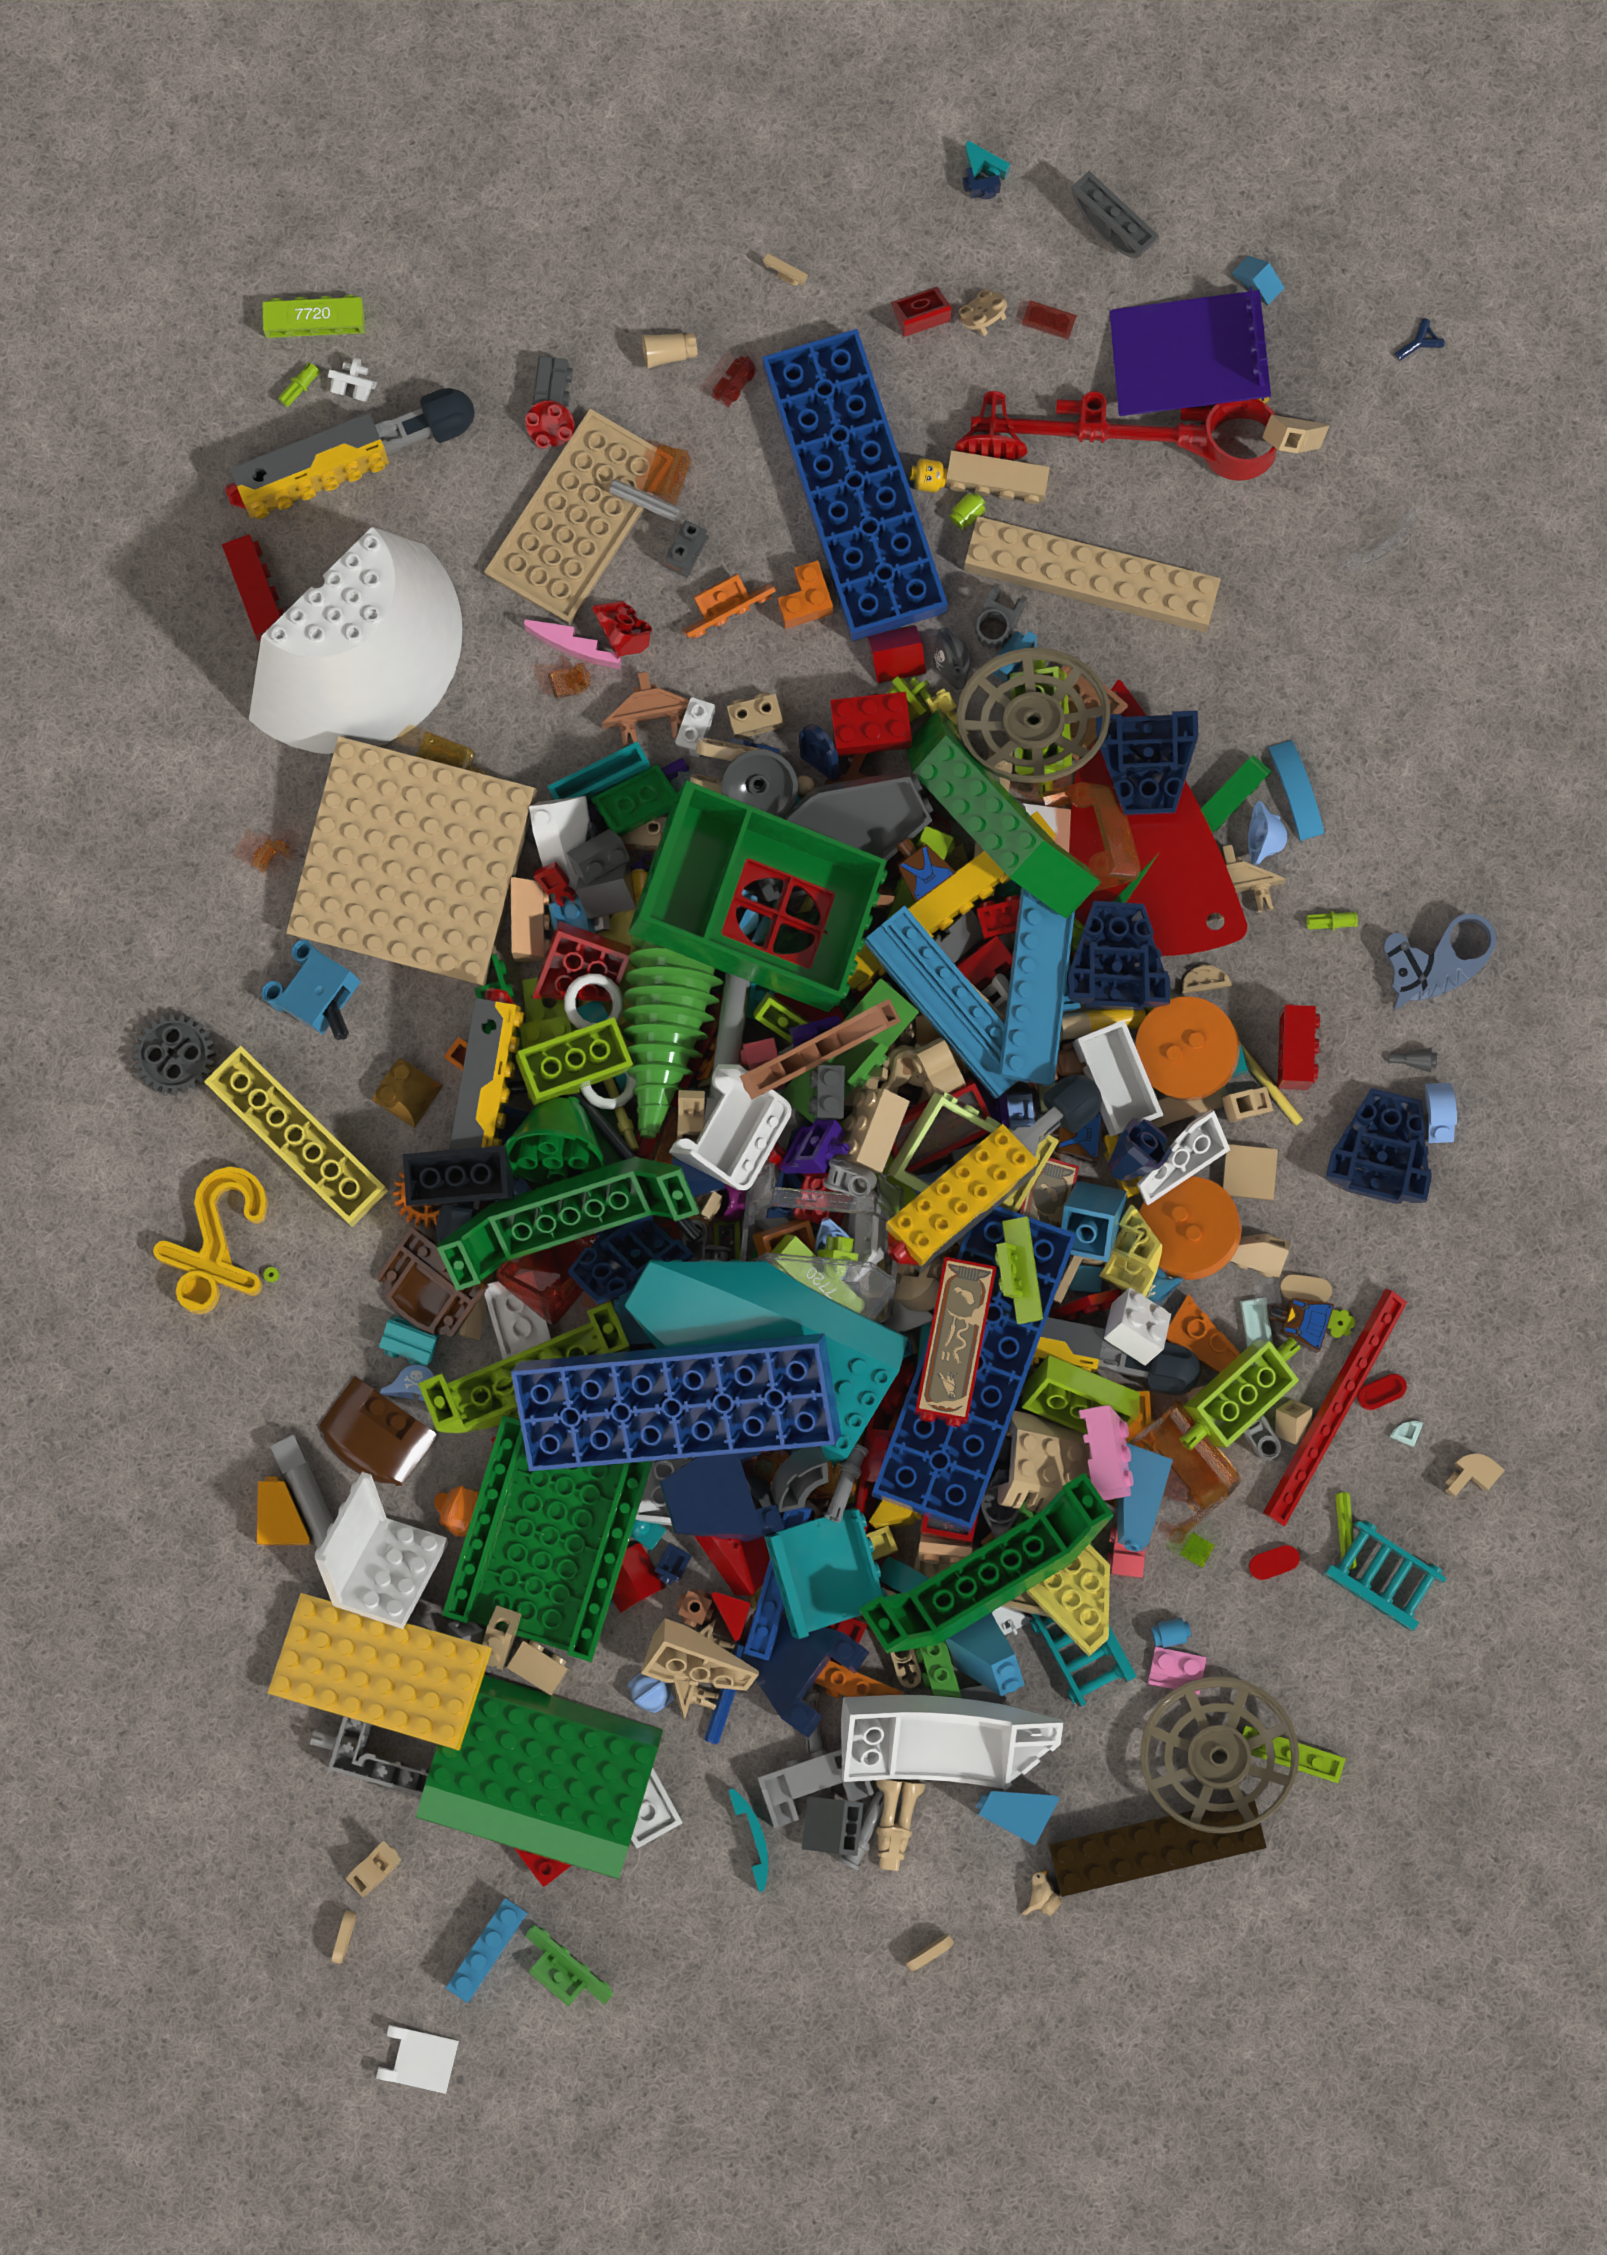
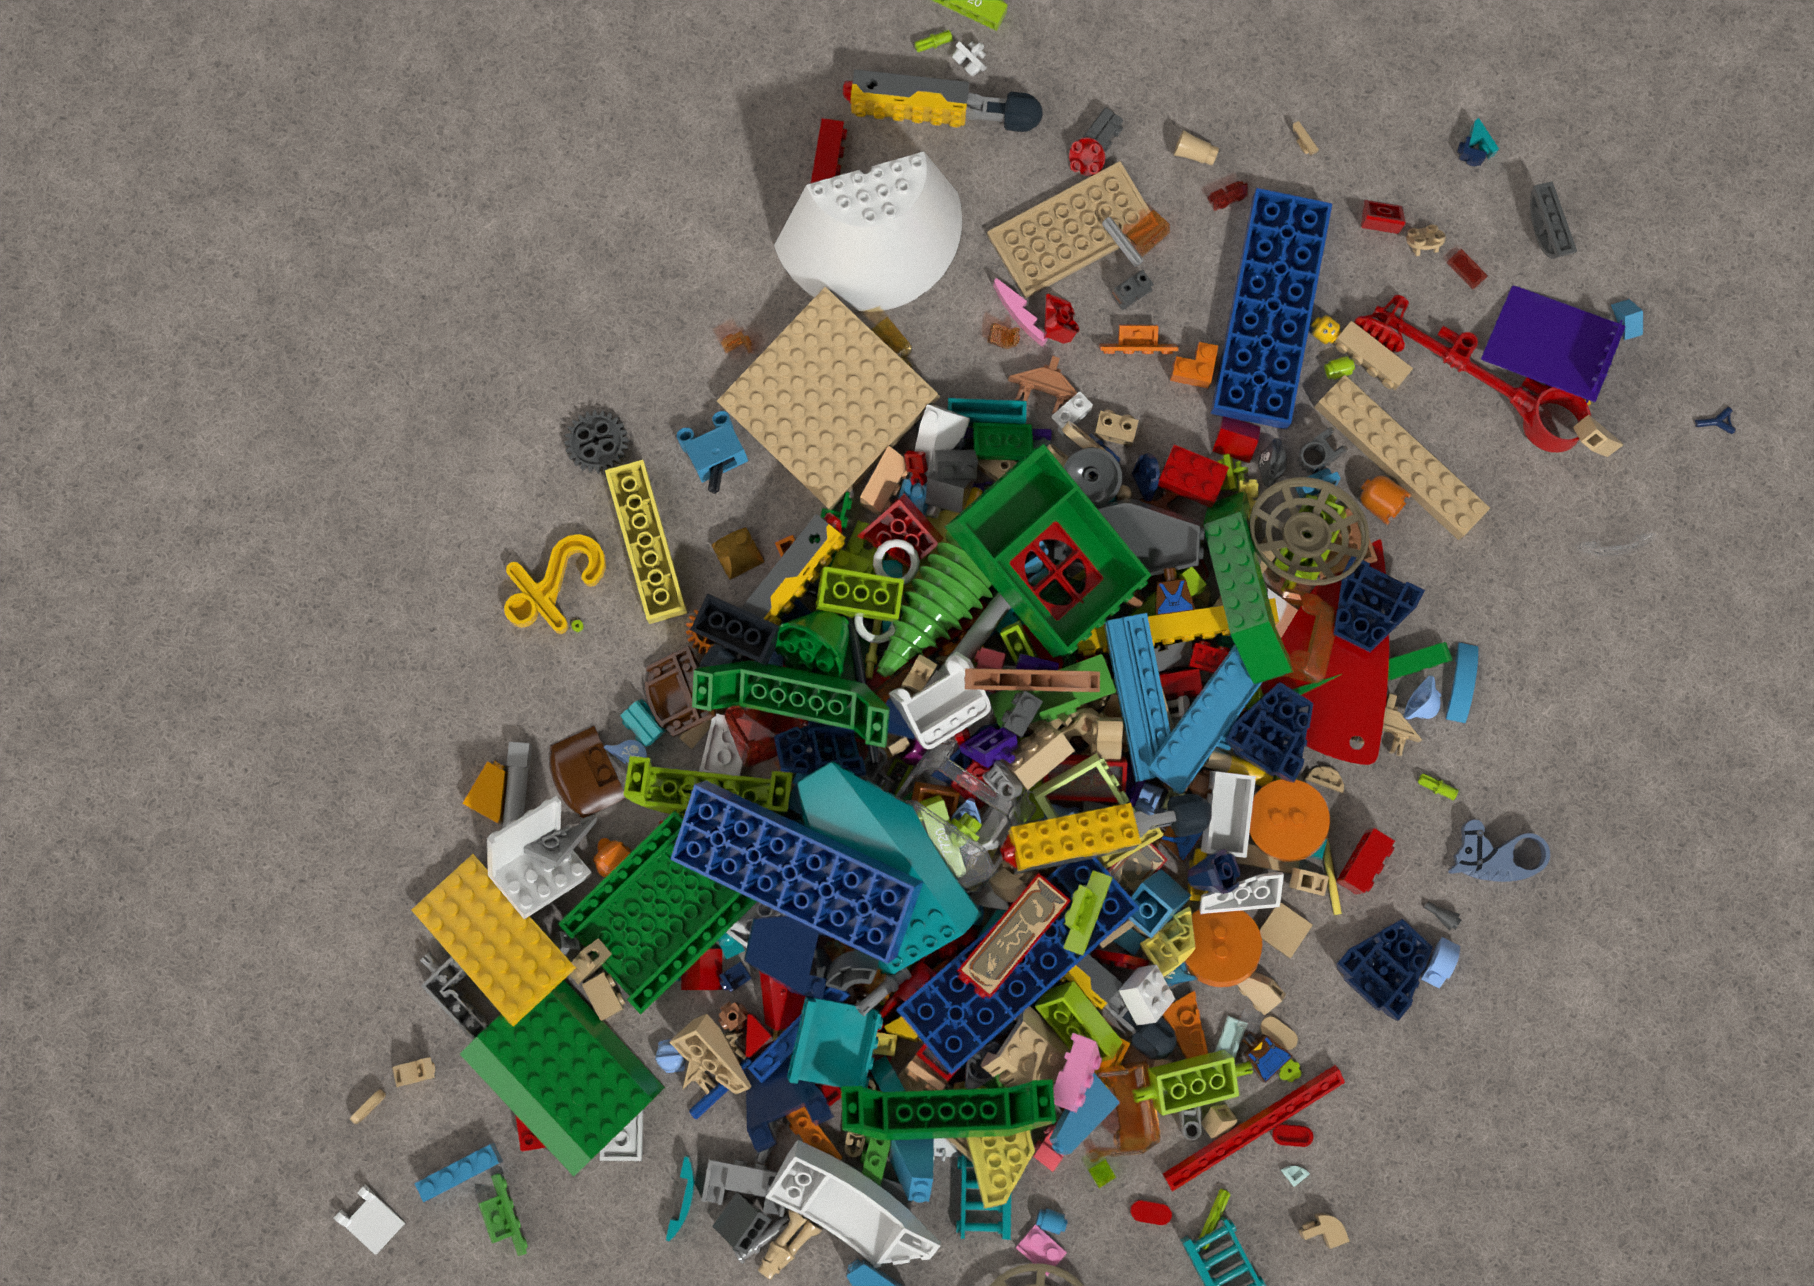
camera: 25 degrees right, 0 degrees up
(393, 1529) = (556, 847): none -> light grey wing
(1096, 631) = (1383, 497): none -> orange cylinder

